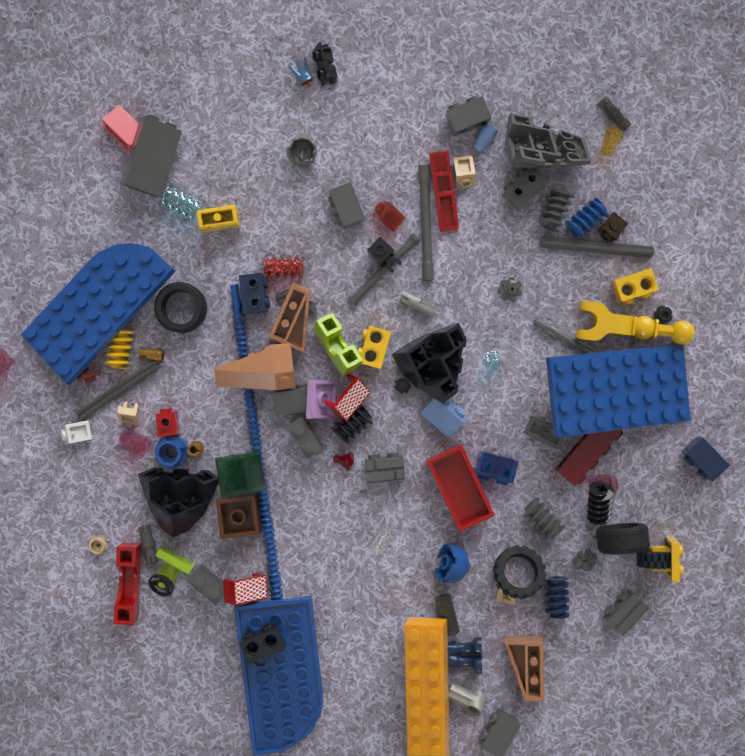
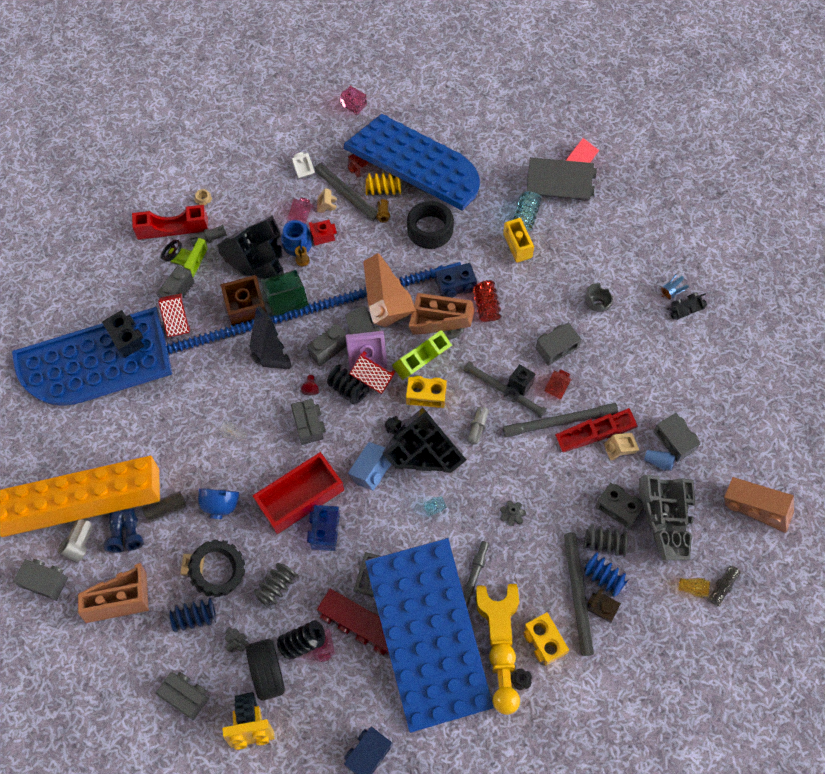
camera: 80 degrees right, 25 degrees down
(301, 499) = (265, 344): none -> black wedge
(548, 58) = (760, 503): none -> nougat wedge

